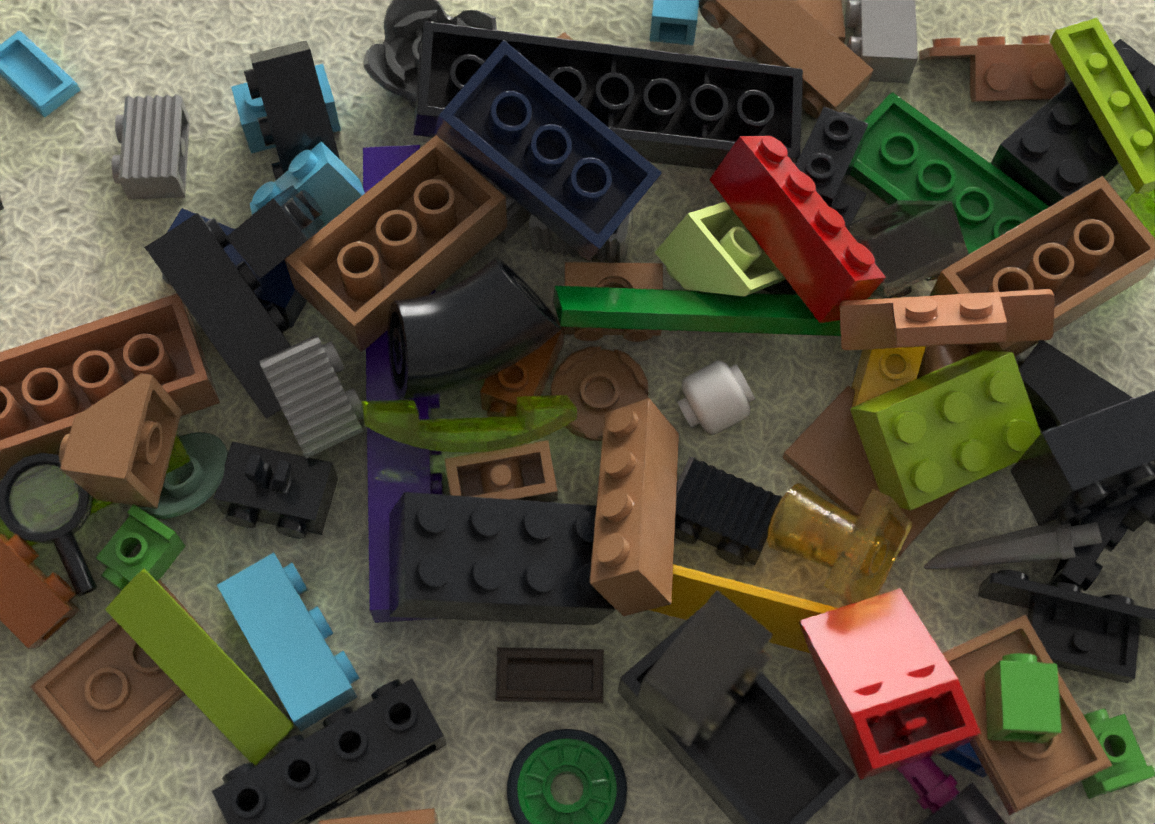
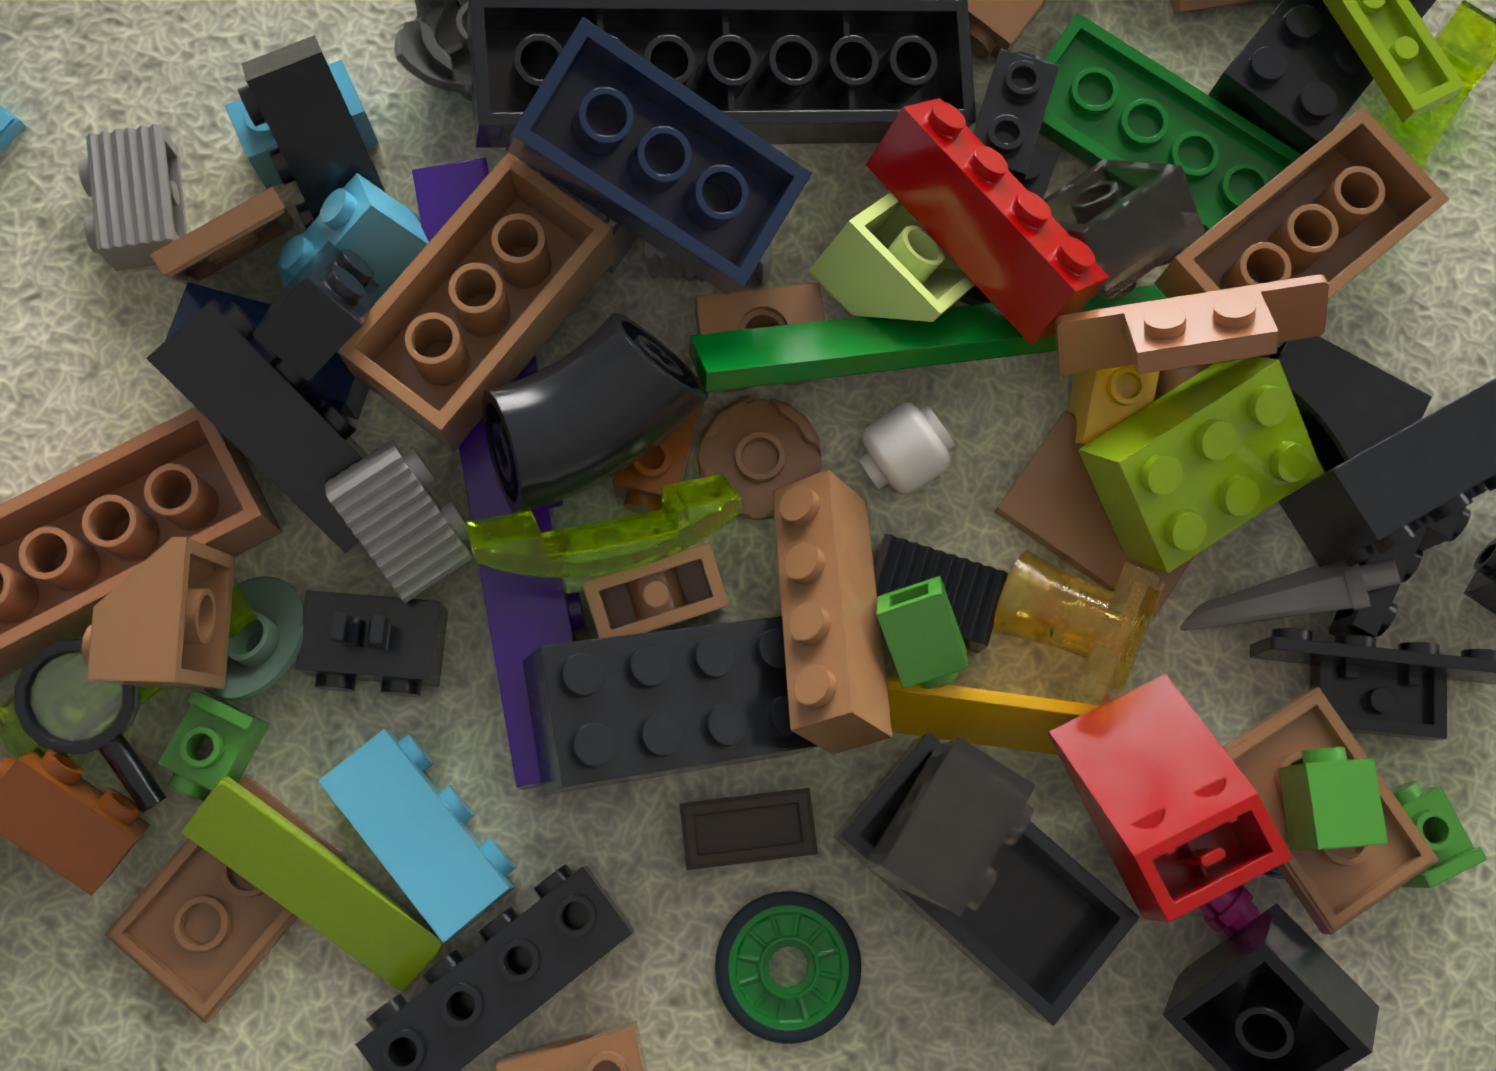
camera: 15 degrees left, 10 degrees up
(217, 176) = (224, 238): none -> medium nougat tile
(707, 532) = (922, 634): none -> bright green brick

